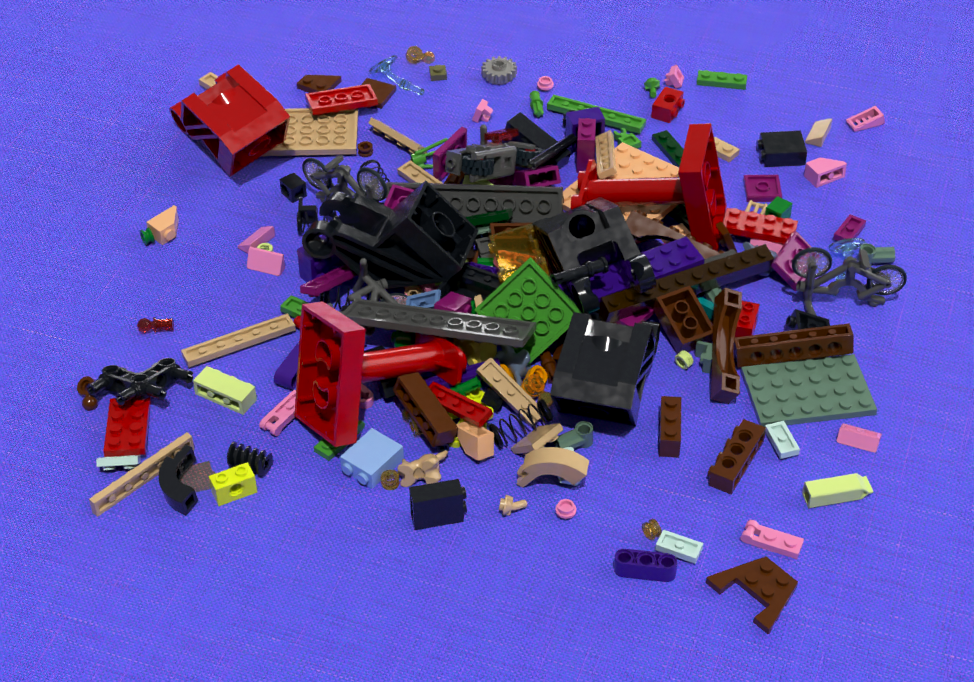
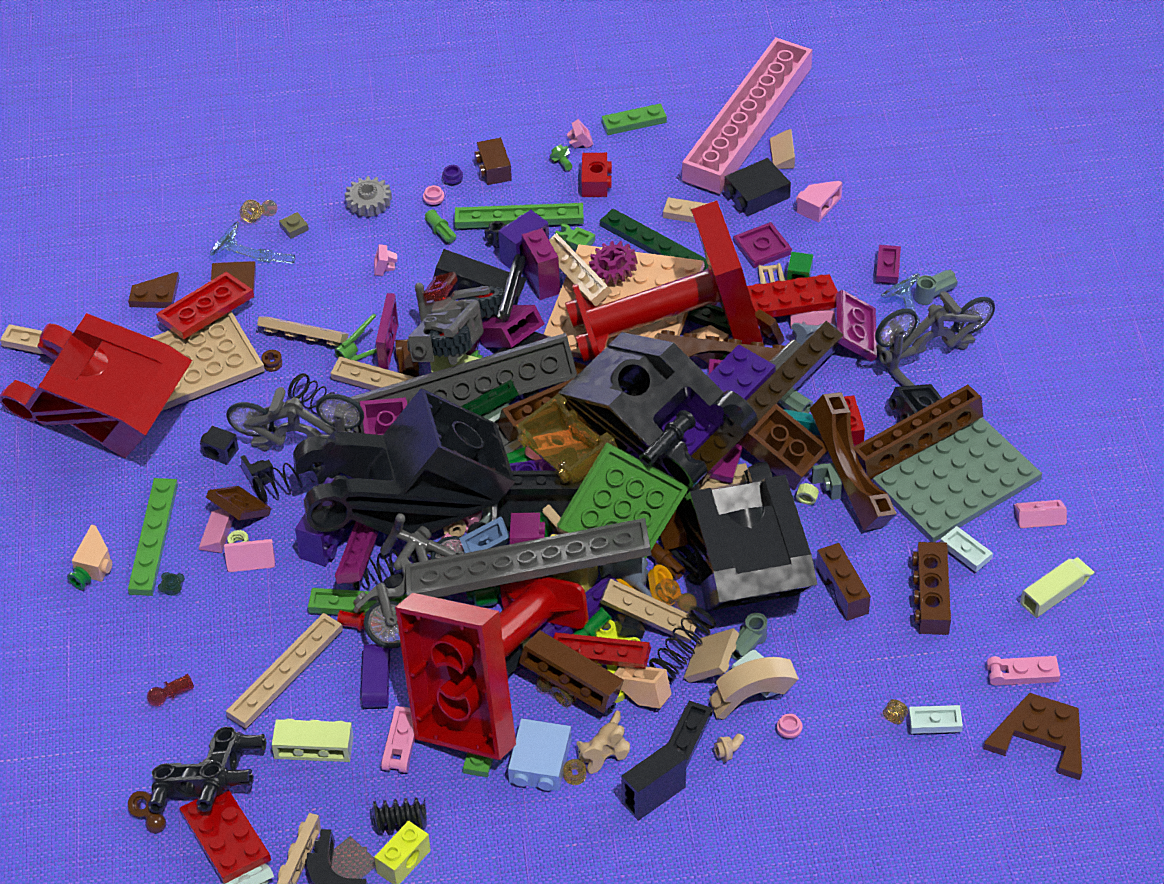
camera: 25 degrees left, 5 degrees up
(203, 261) = (168, 587): none -> plate
(212, 229) = (153, 537): none -> bright green plate
(279, 225) = (238, 502): none -> reddish brown tile
(488, 485) = (691, 728): none -> black plate
(567, 74) = (452, 174): none -> dark purple plate
(600, 74) = (493, 161): none -> reddish brown brick
(634, 158) = (614, 262): none -> magenta gear
(645, 565) = (926, 758): dark purple beam -> none
(805, 99) = (747, 115): none -> bright pink brick
(874, 117) = (828, 104): bright pink slope -> none

